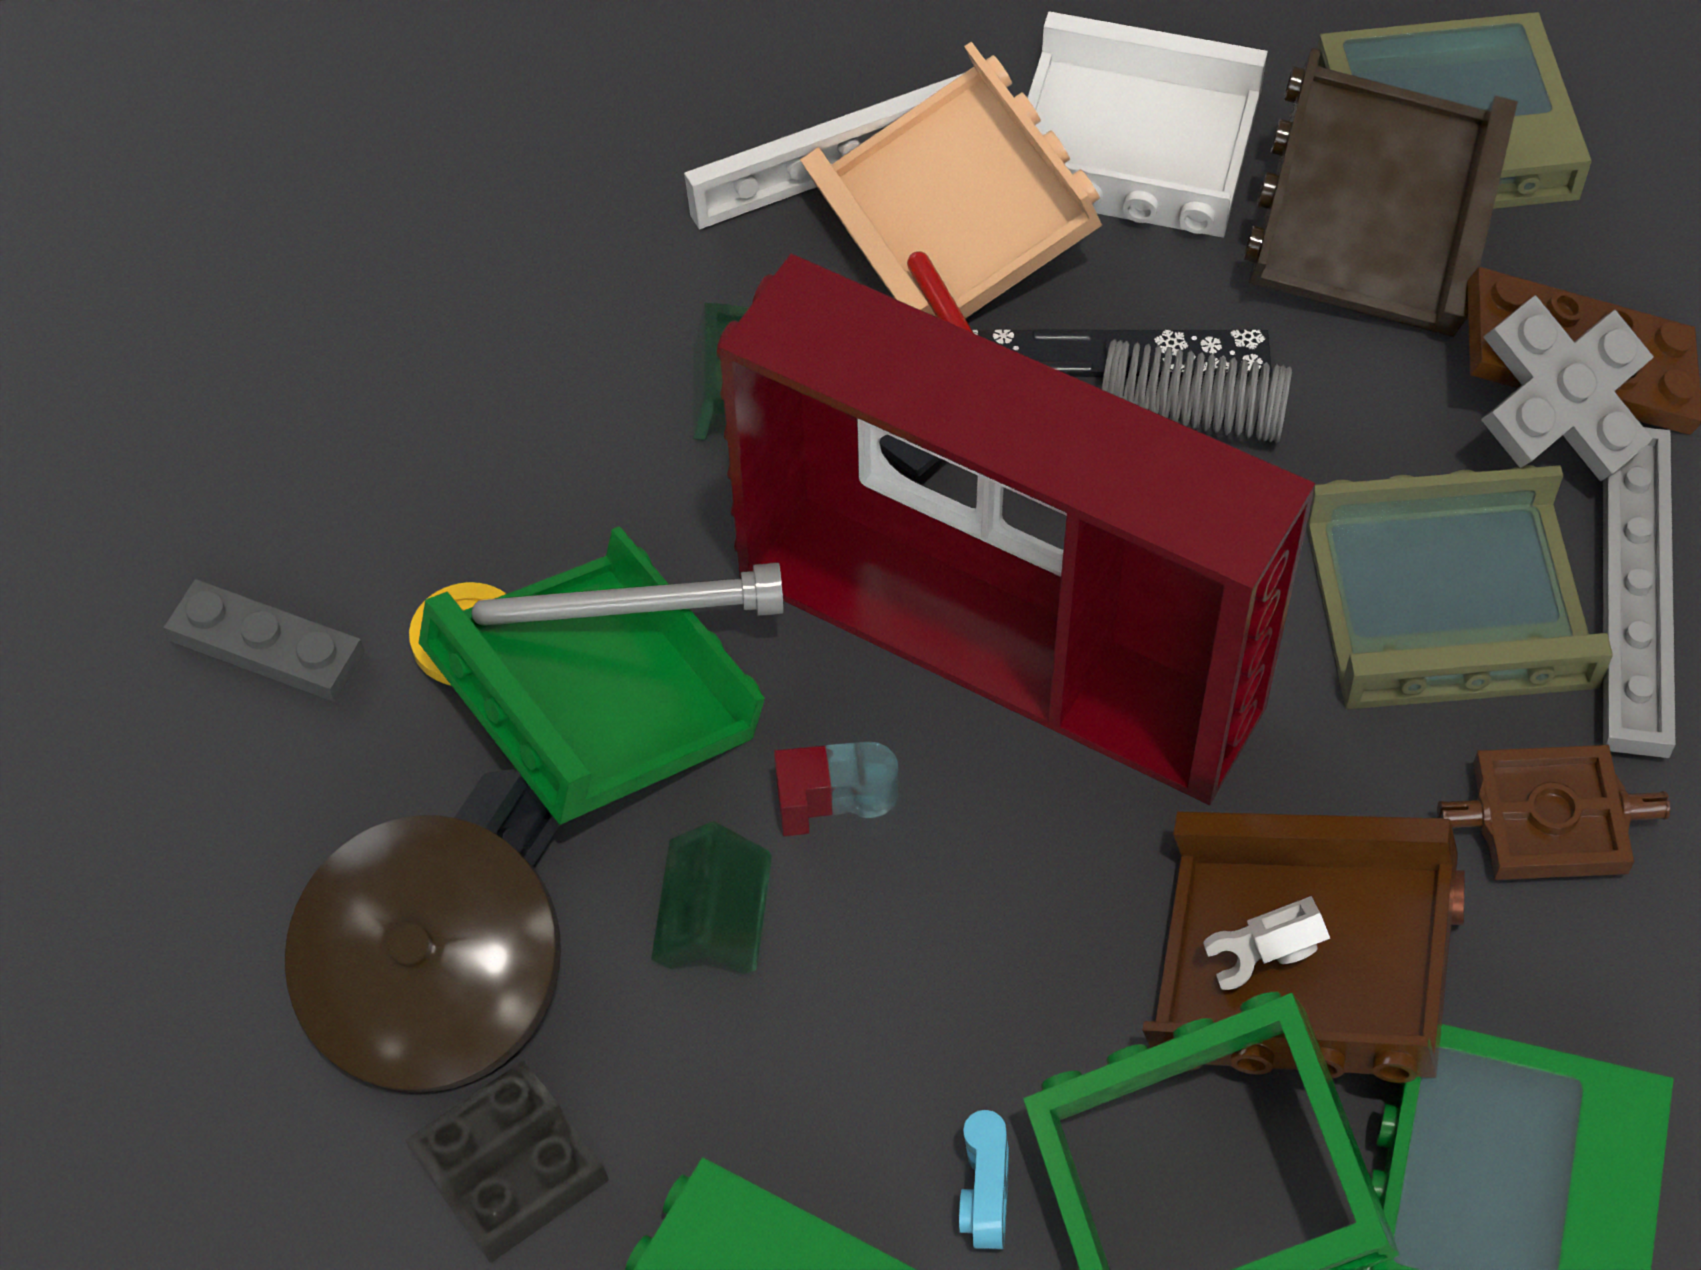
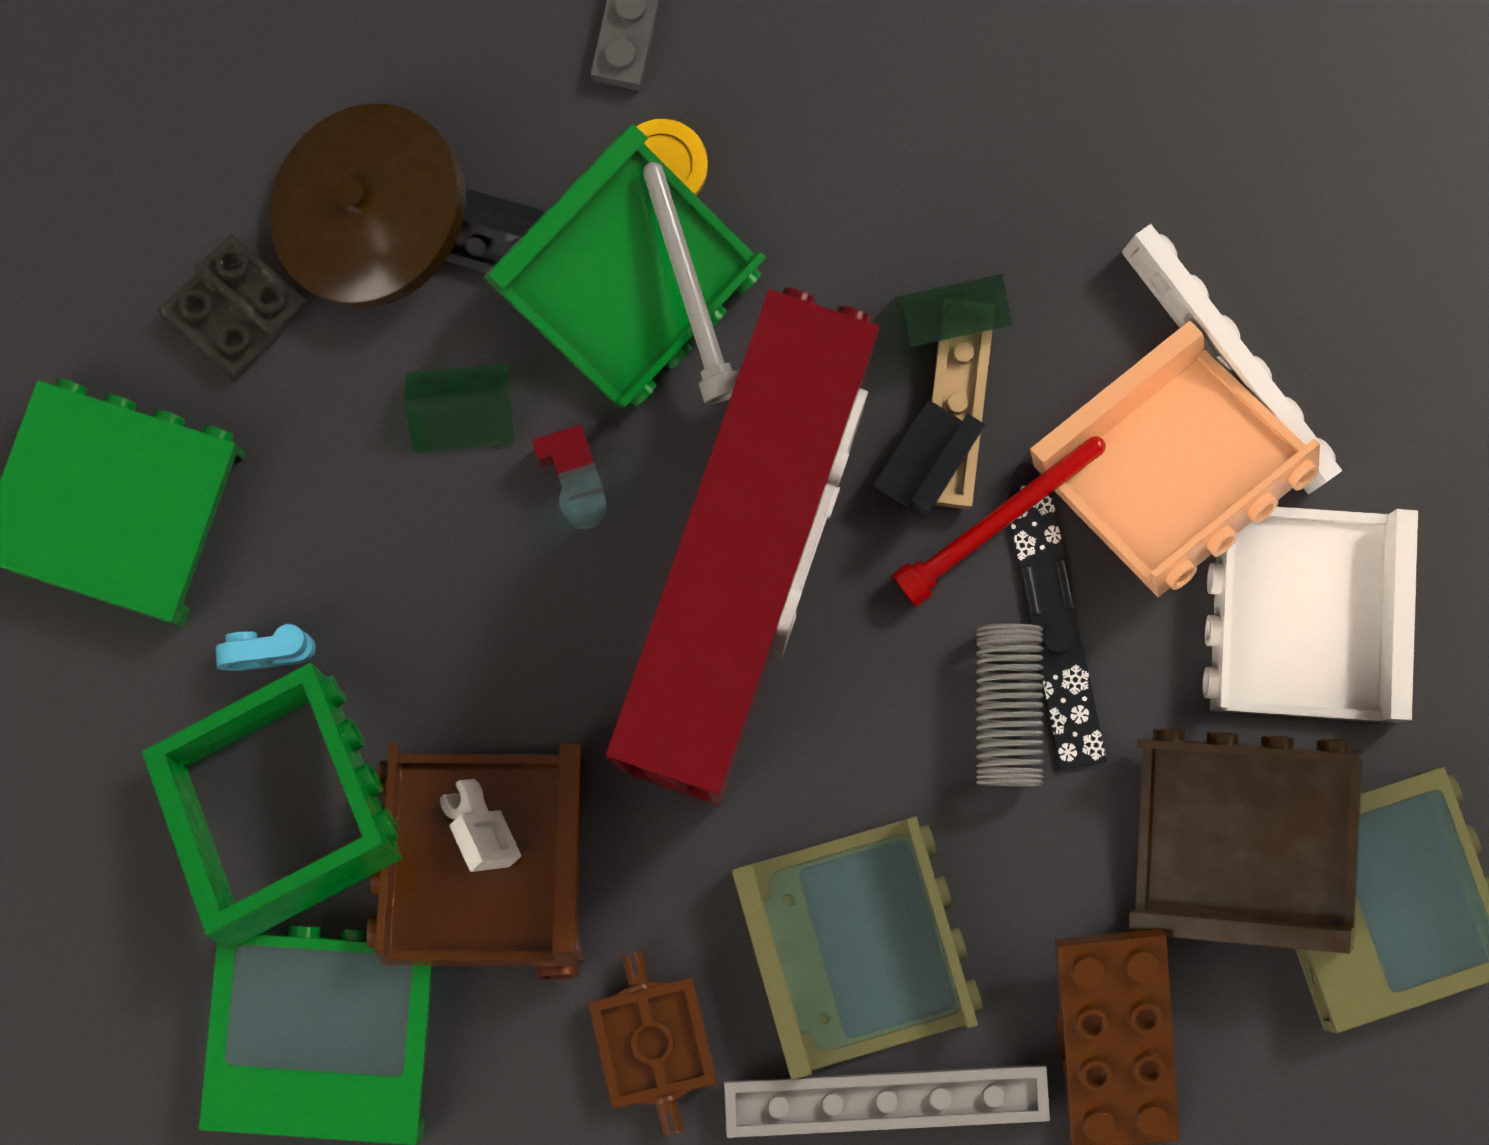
camera: 75 degrees right, 25 degrees up
(1567, 388) = (1050, 1024): light grey plate -> none

